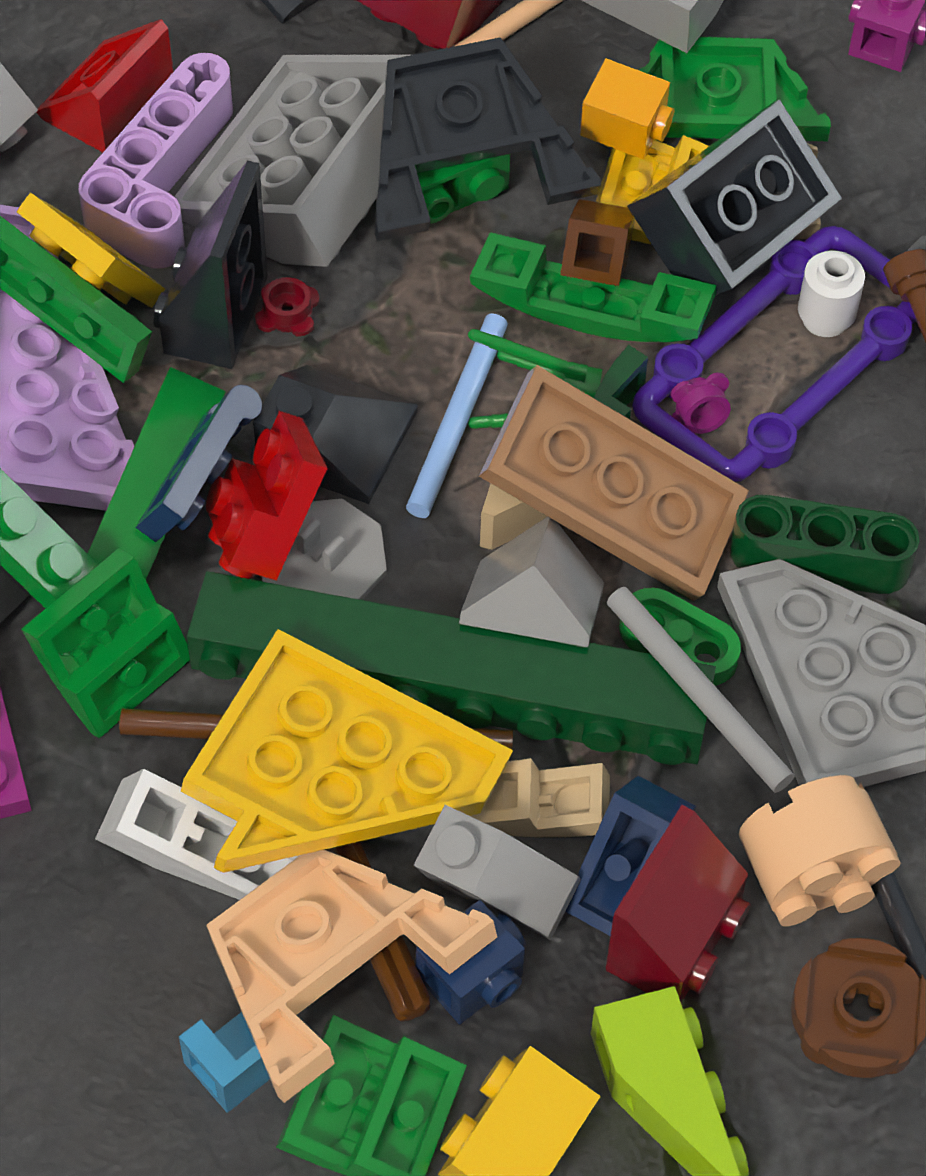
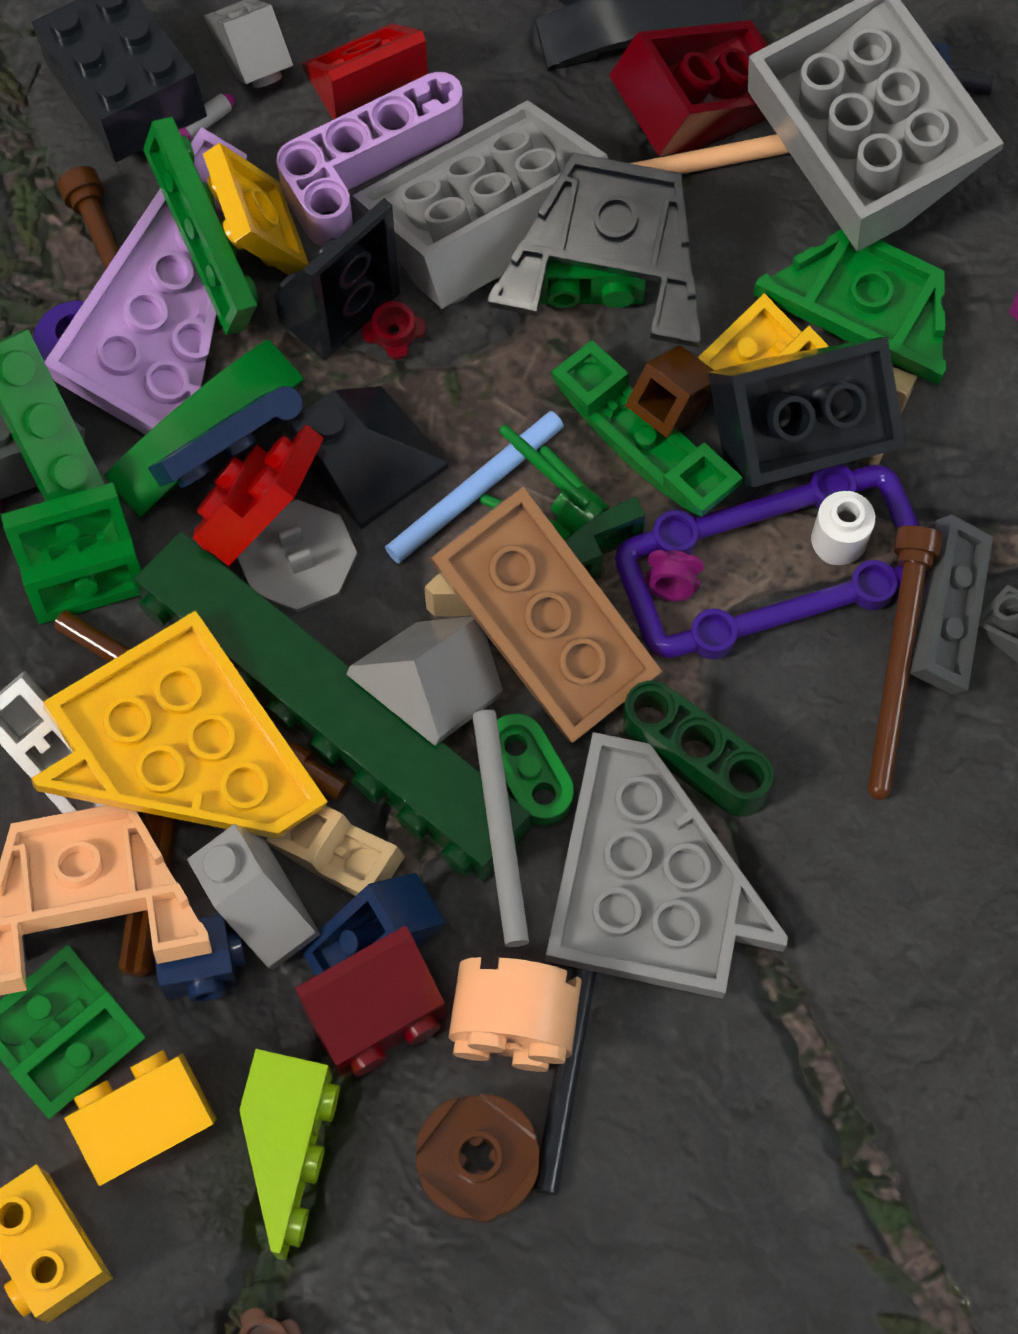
camera: 30 degrees right, 10 degrees up
(626, 109) = (766, 282): light orange brick -> none

